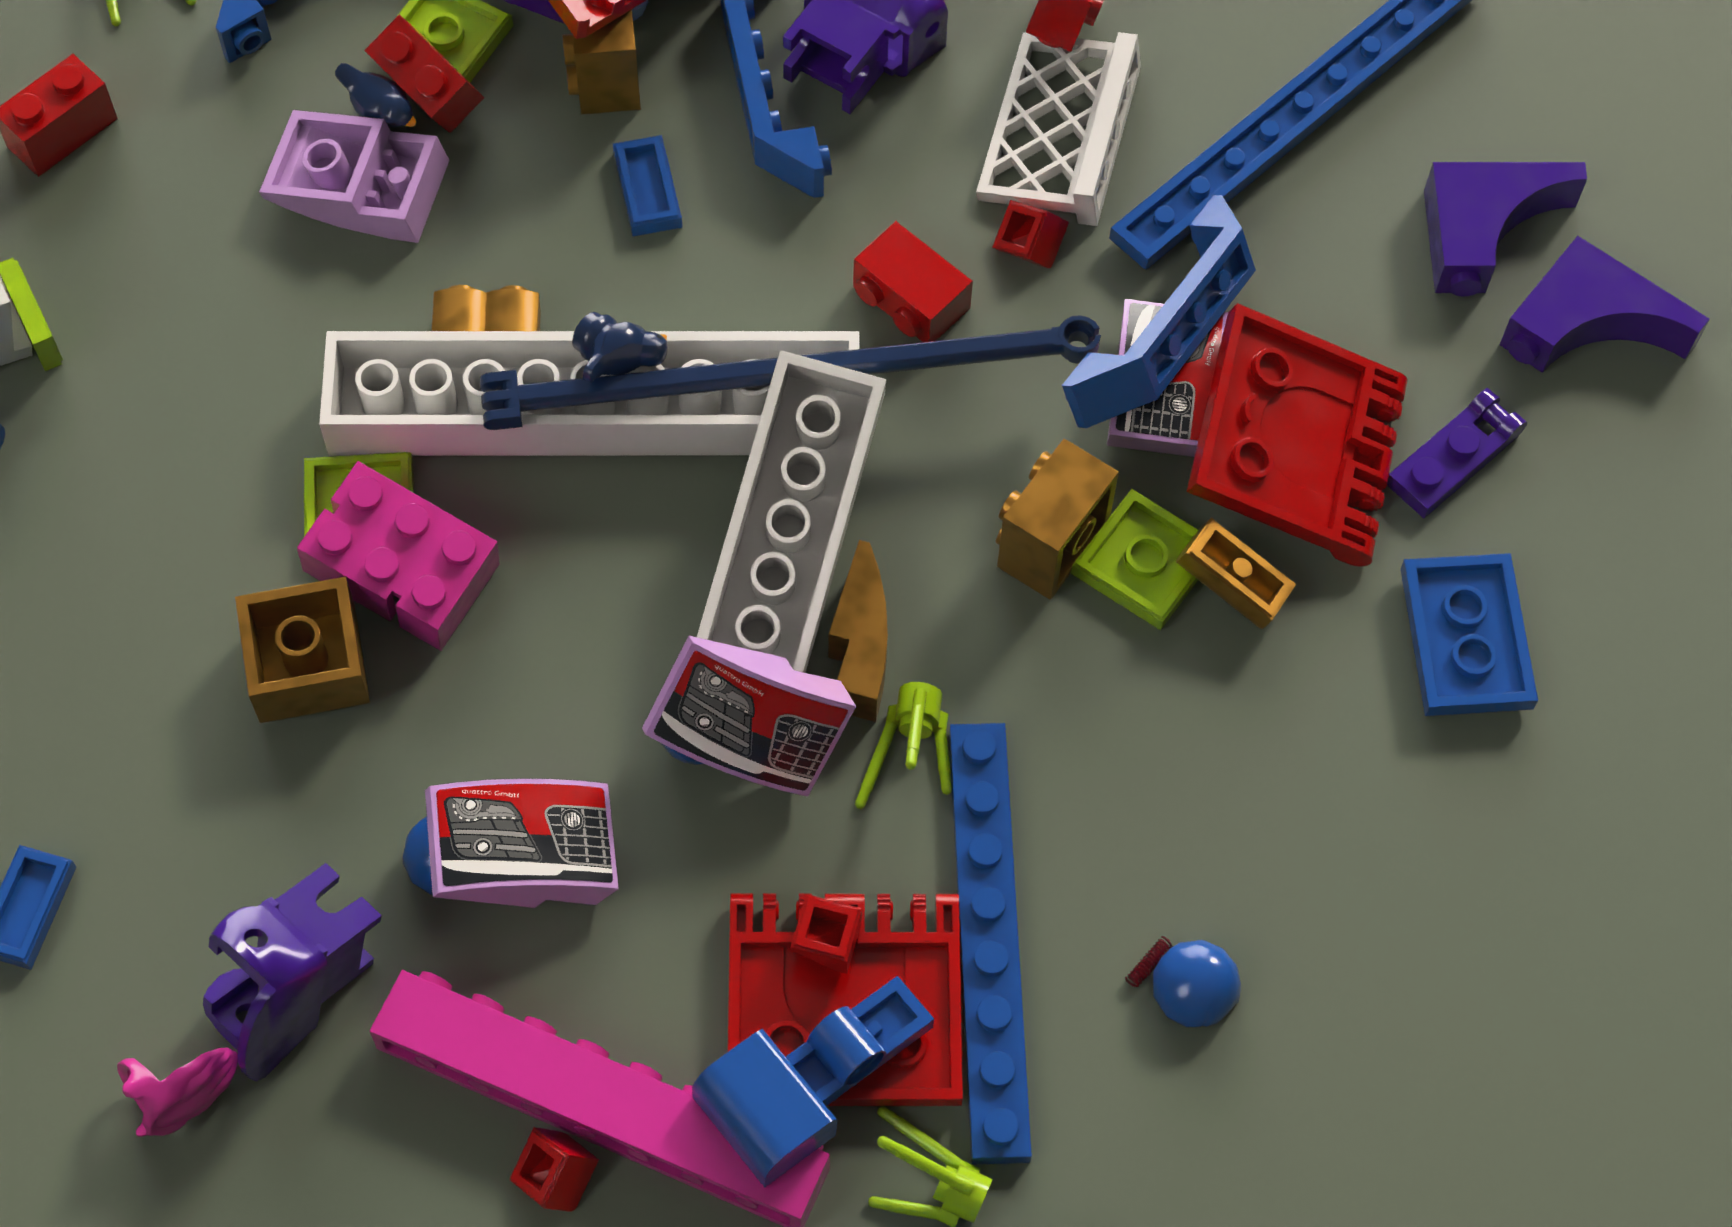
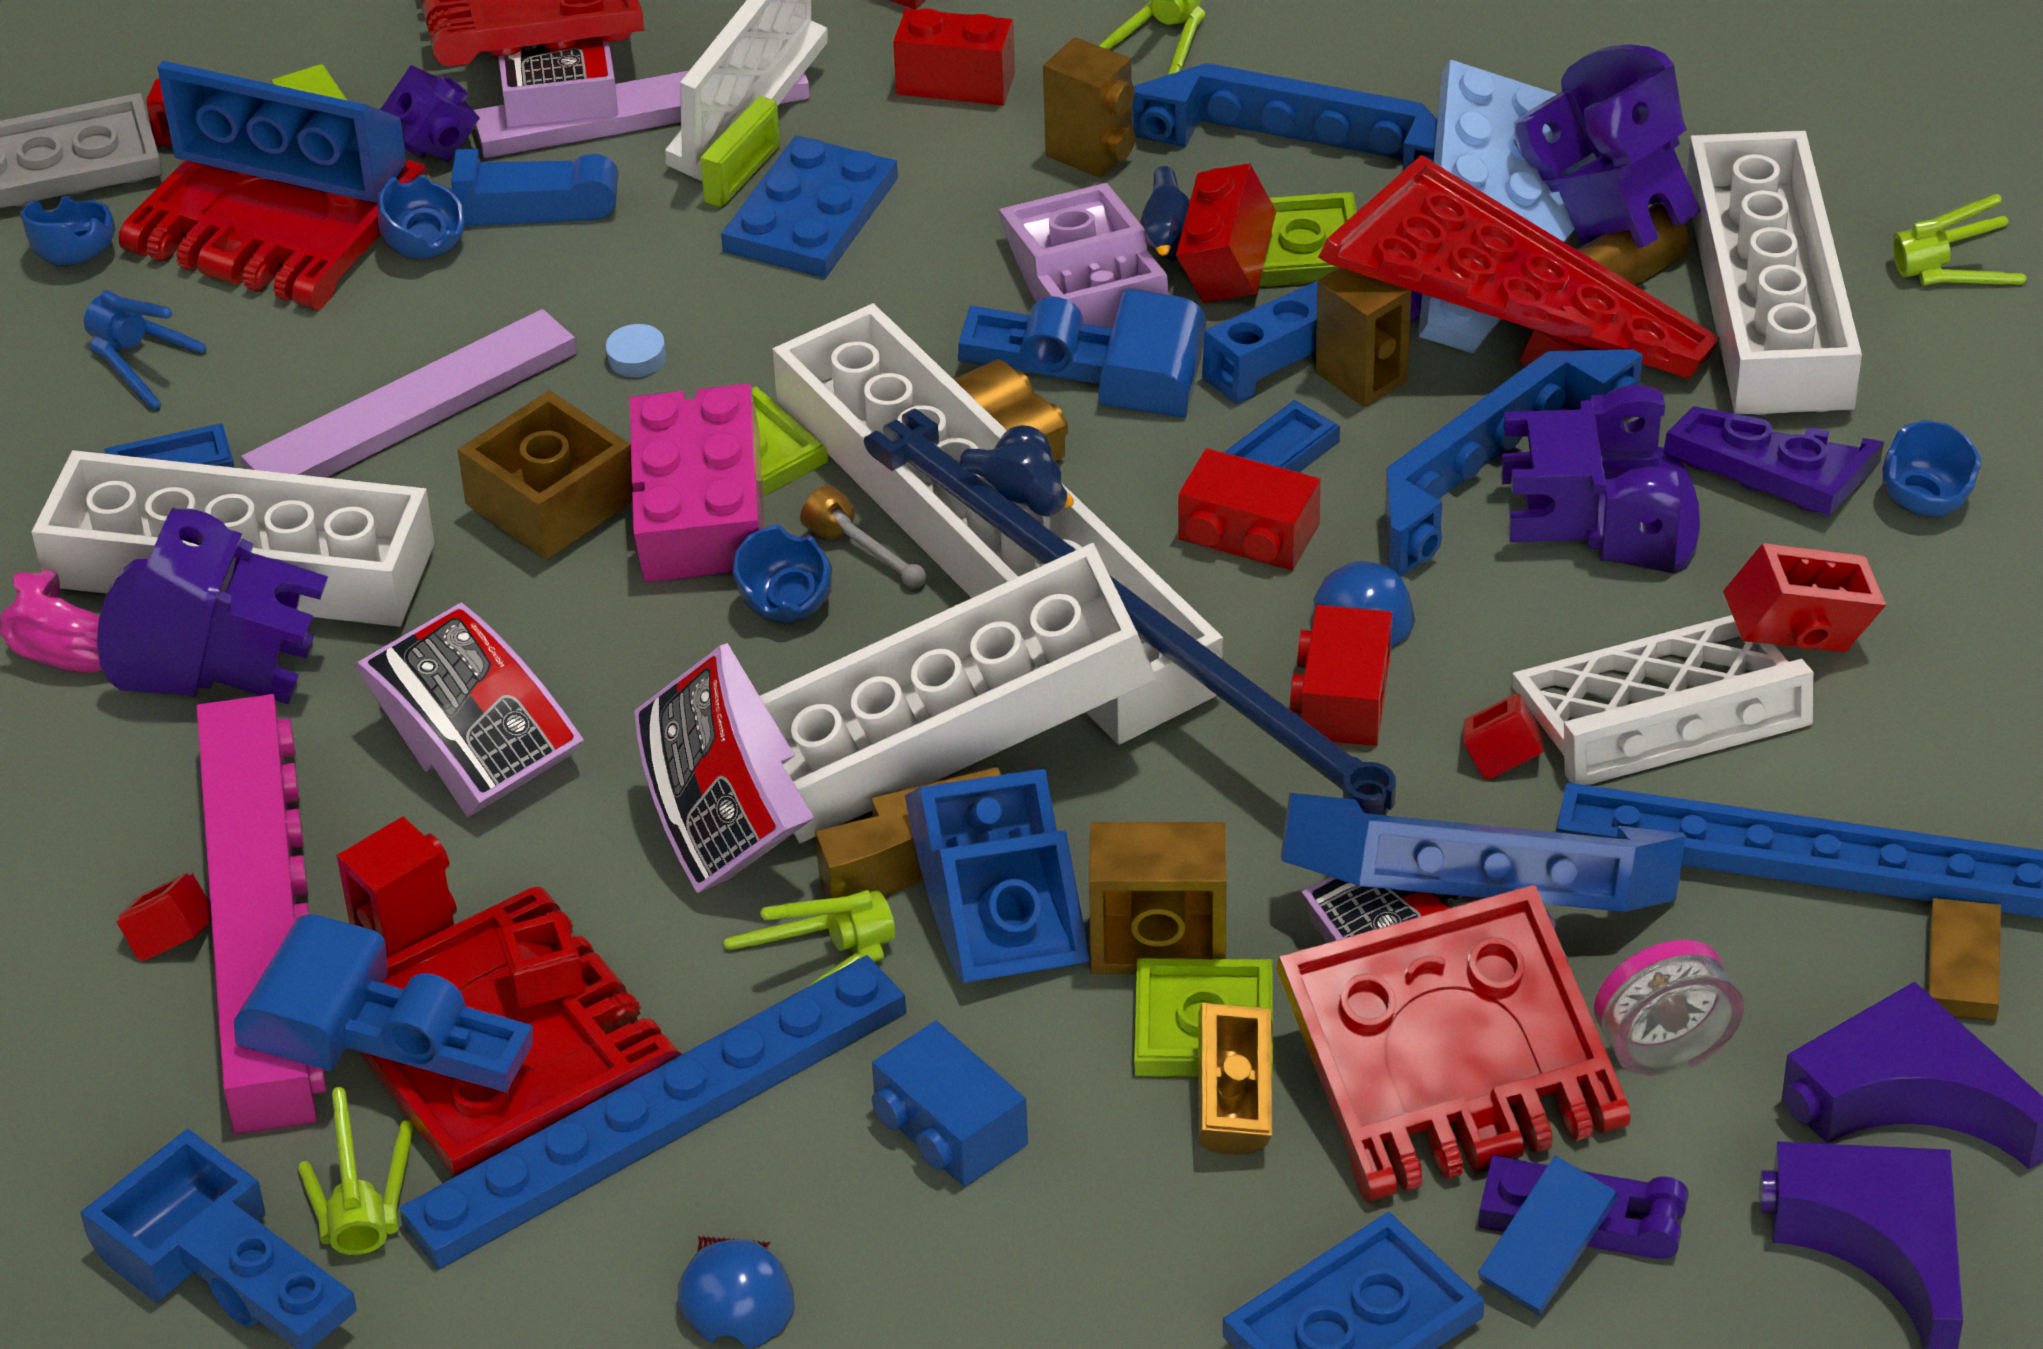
camera: 60 degrees right, 20 degrees down
(110, 703) = (417, 399): none -> lavender tile
(124, 306) = (809, 206): none -> blue plate
(150, 929) = (355, 532): none -> white brick
(184, 513) = (636, 350): none -> light blue tile
(215, 68) = (1088, 107): none -> pearl gold brick
(483, 204) = (1140, 362): none -> blue plate
(492, 491) = (831, 515): none -> hinge
(540, 558) = (782, 574): none -> blue hair
(546, 115) = (1260, 343): none -> blue leg
(693, 996) = (397, 885): none -> red brick
(706, 238) = (1249, 509): none -> red brick
(843, 229) = (1369, 587): none -> blue hair
(953, 600) = (998, 875): none -> blue slope
(1129, 755) = (949, 1103): none -> blue brick
(1361, 300) = (1668, 1008): none -> clear piece
(1400, 124) = (1965, 957): none -> pearl gold tile
(1483, 486) = (1547, 1235): none -> blue tile

